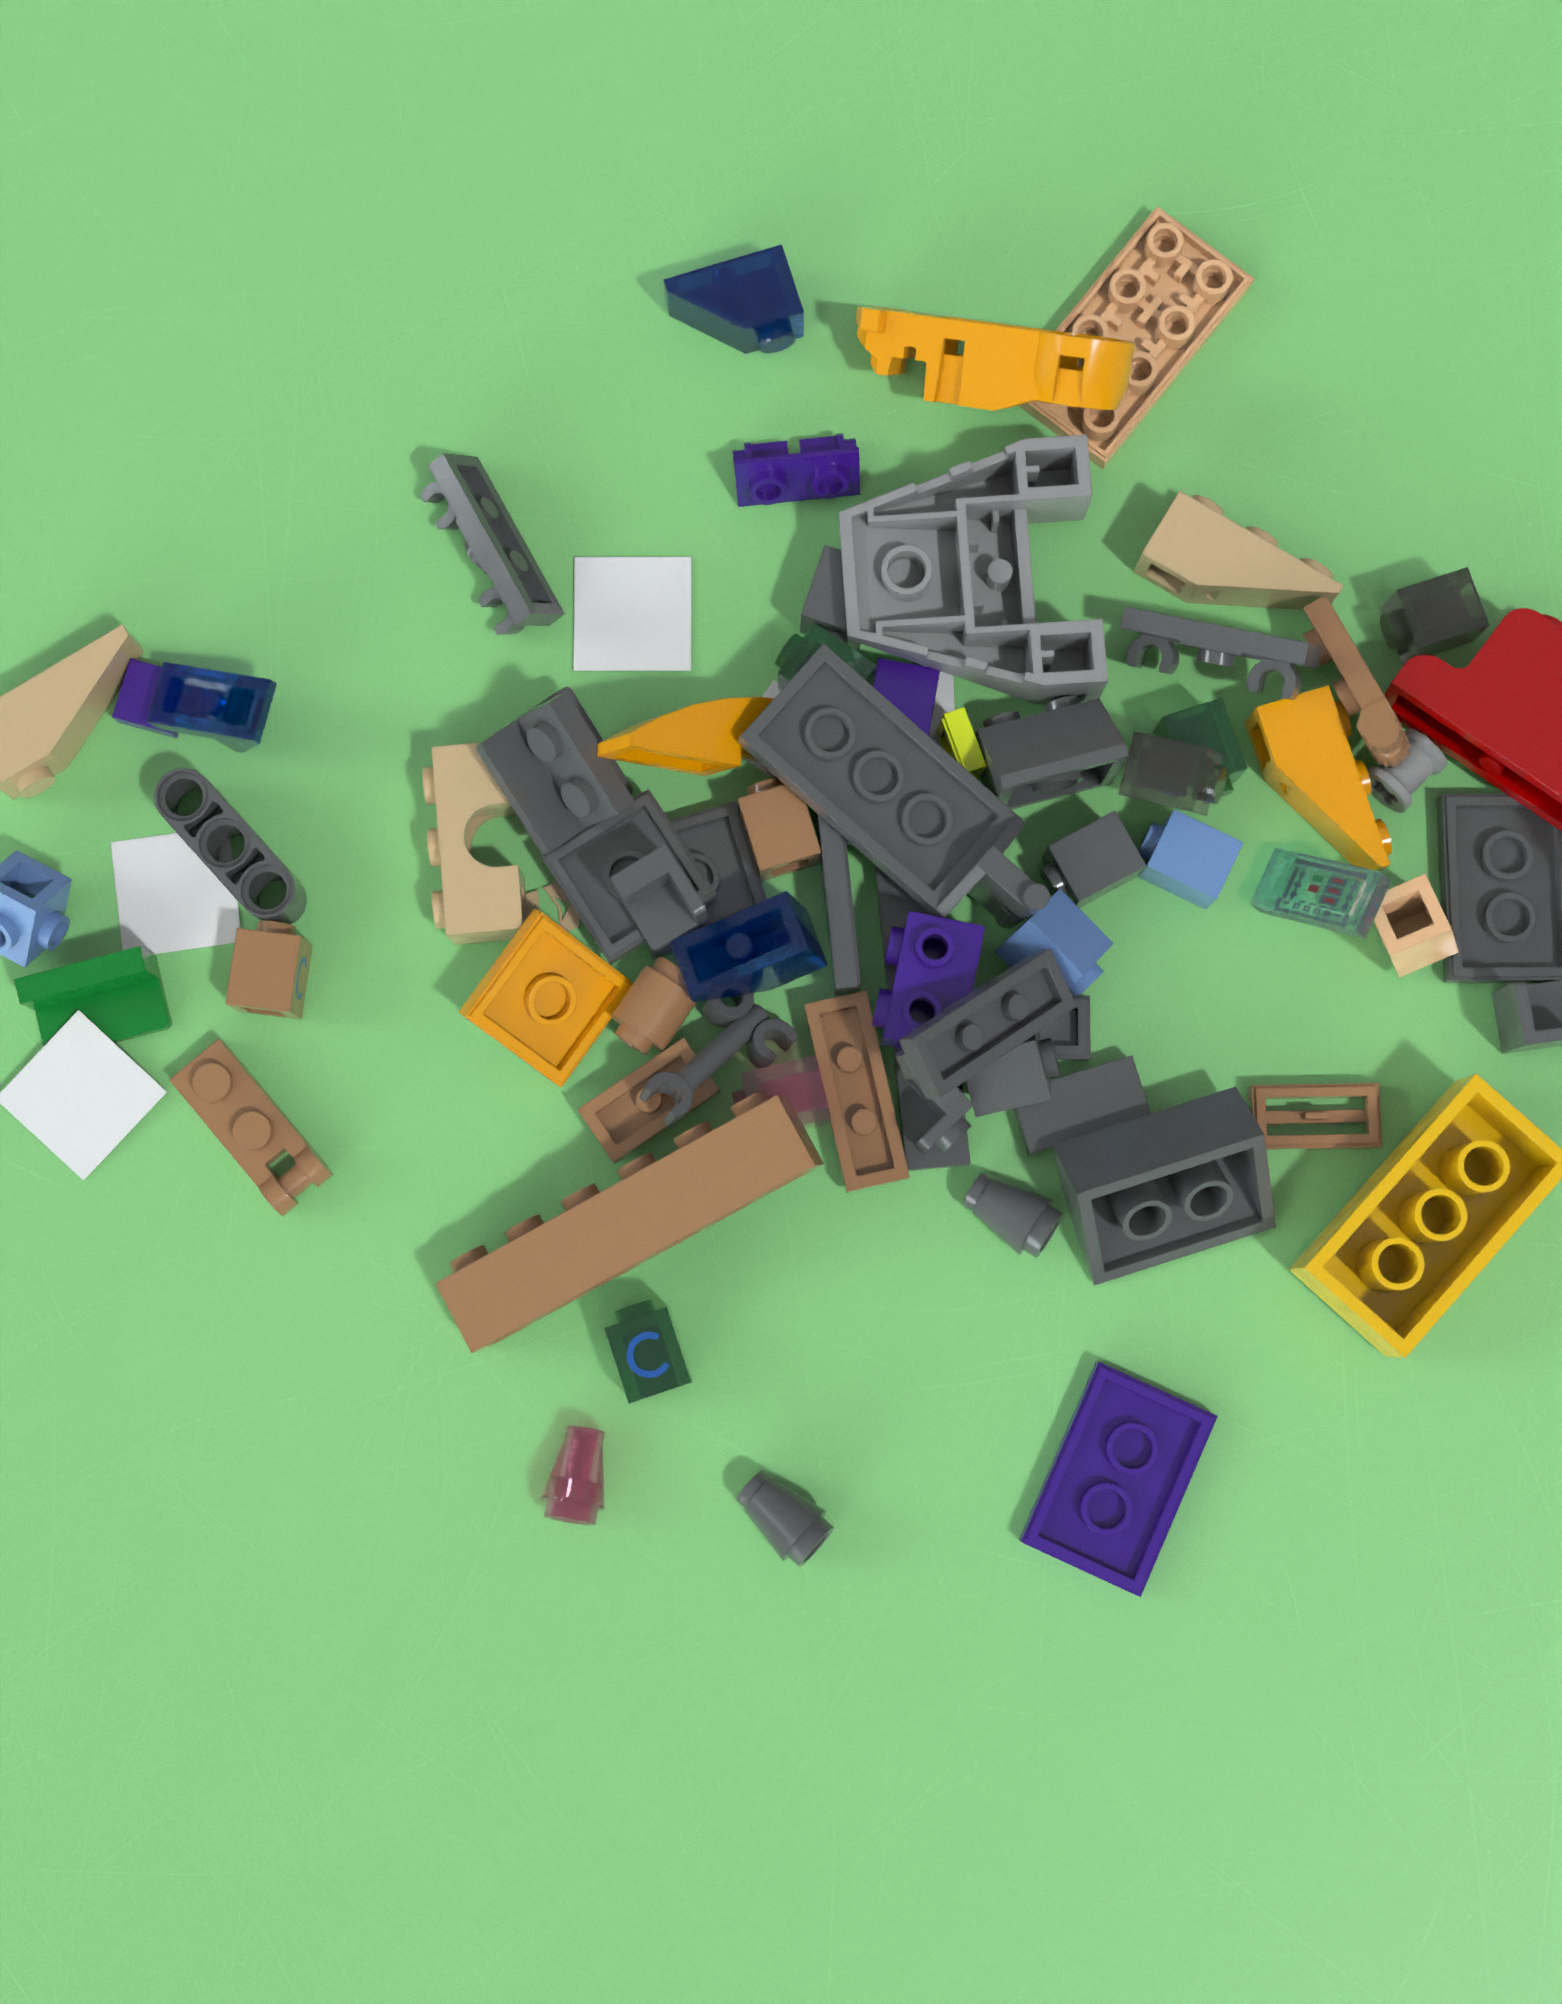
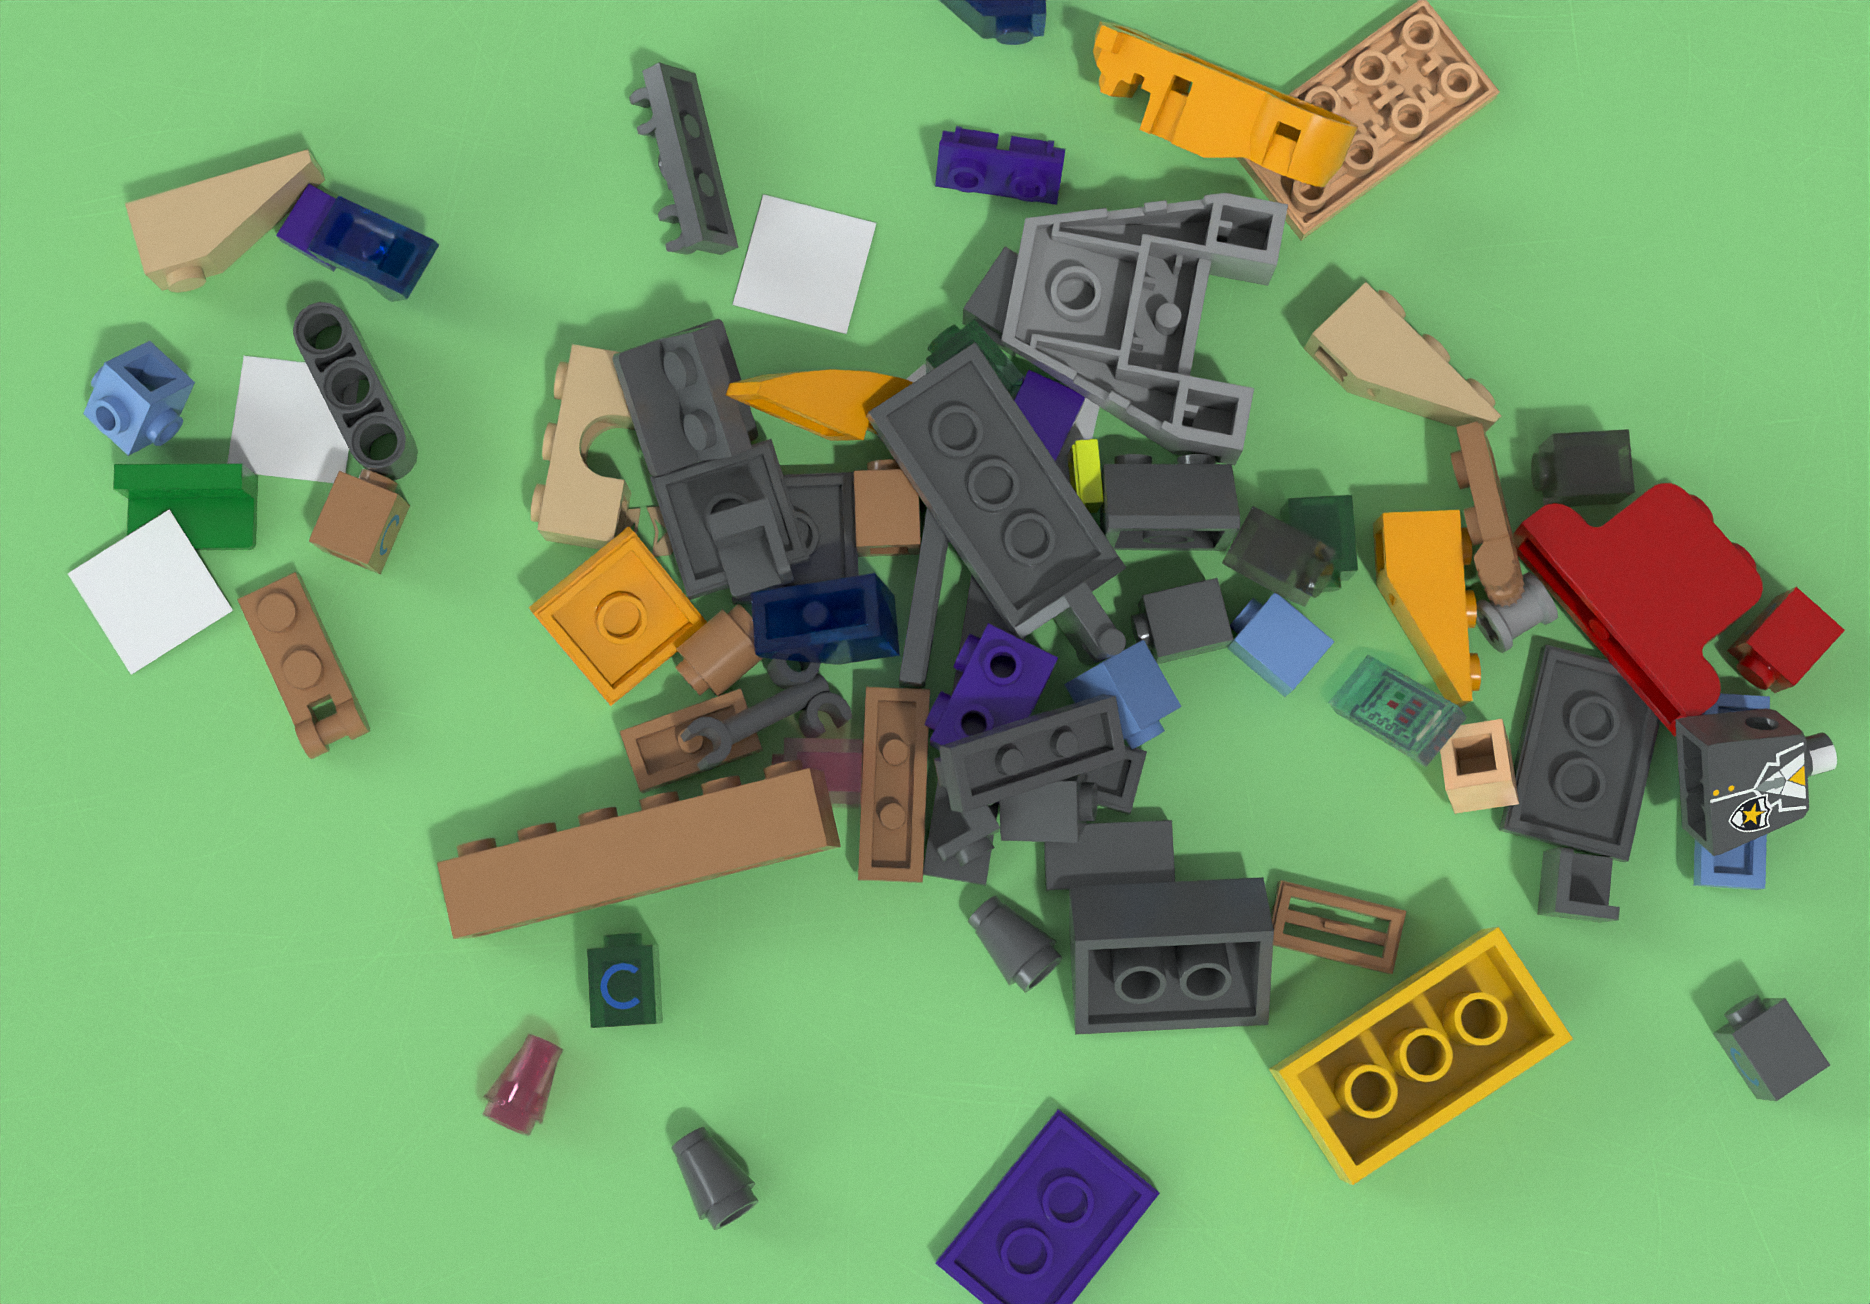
camera: 15 degrees right, 0 degrees up
(1218, 646) = (1363, 445): dark grey plate -> none

